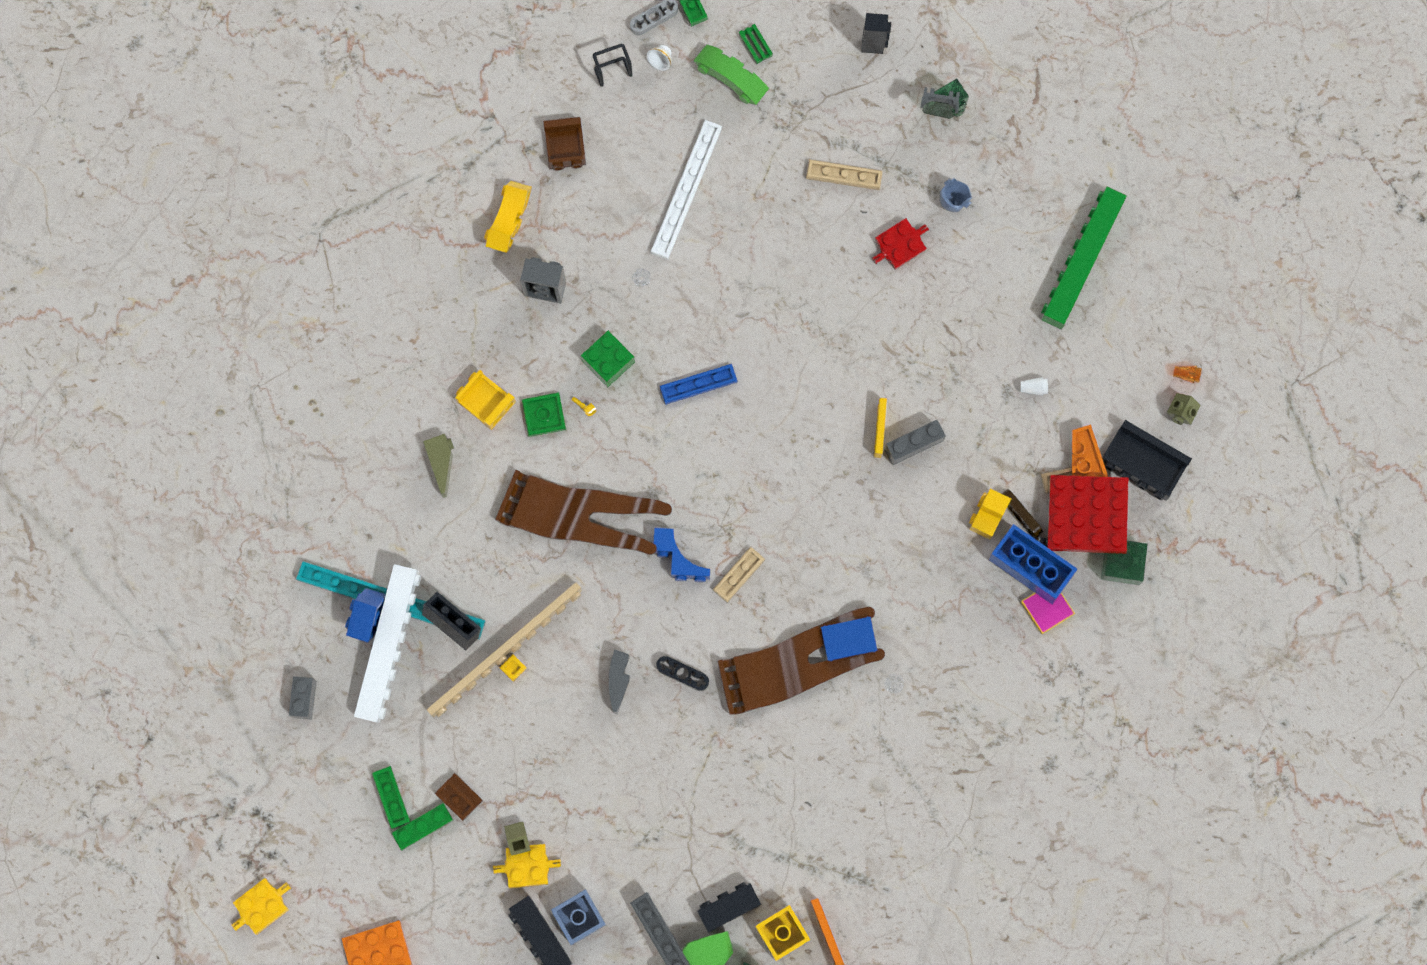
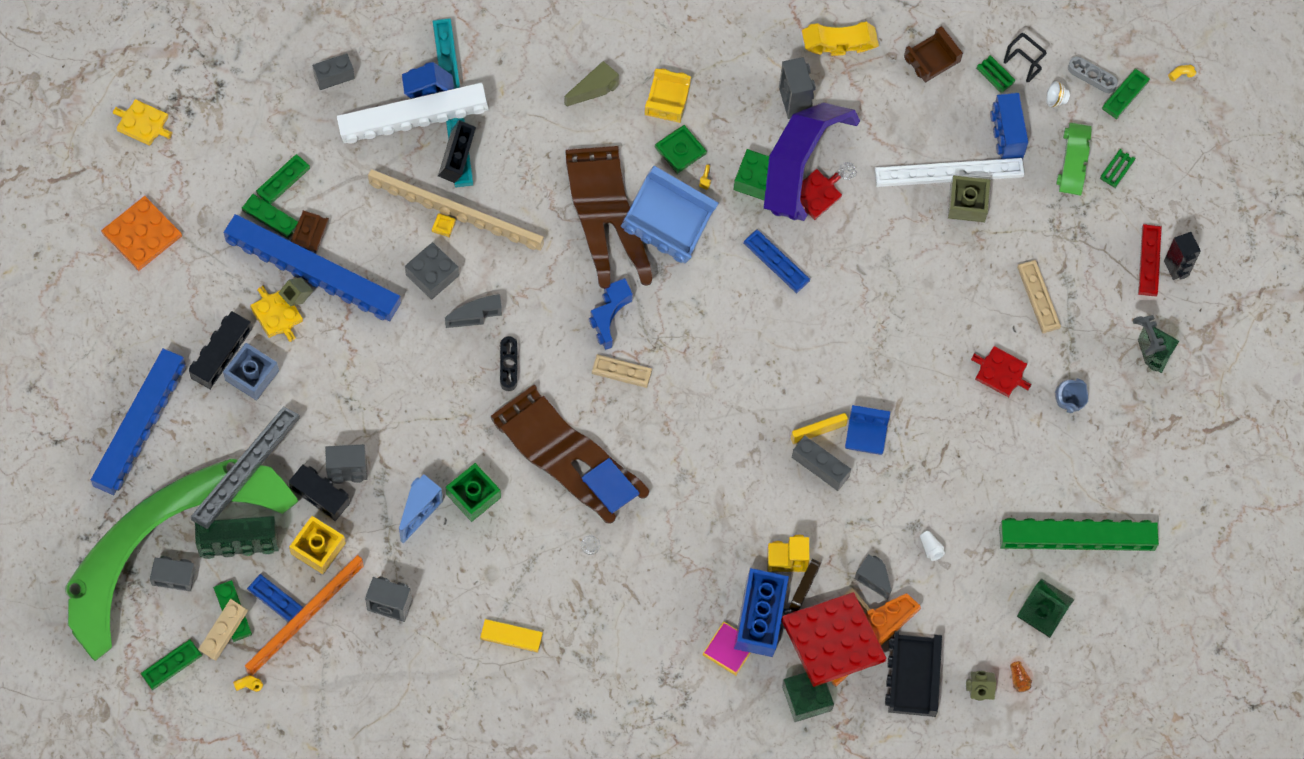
camera: 60 degrees right, 10 degrees down
(496, 812) = (312, 267): none -> blue brick
(557, 700) = (432, 270): none -> dark grey brick
(609, 458) = (668, 214): none -> medium blue panel
(613, 310) = (792, 153): none -> dark purple panel
(623, 89) = (985, 63): none -> green tile
(650, 317) = (819, 193): none -> red plate
(673, 114) = (1009, 126): none -> blue brick
(715, 870) = (346, 463): none -> dark grey brick
(725, 185) = (968, 198): none -> olive brick
(787, 819) = (421, 503): none -> medium blue slope
(798, 765) = (473, 492): none -> green brick
(856, 63) = (1149, 260): none -> red tile
(867, 890) = (388, 598): none -> dark grey brick
(902, 387) = (867, 430): none -> blue bracket
(947, 795) = (511, 635): none -> yellow tile
(1040, 448) = (874, 576): none -> dark grey slope
(1136, 319) = (1045, 608): none -> clear green slope

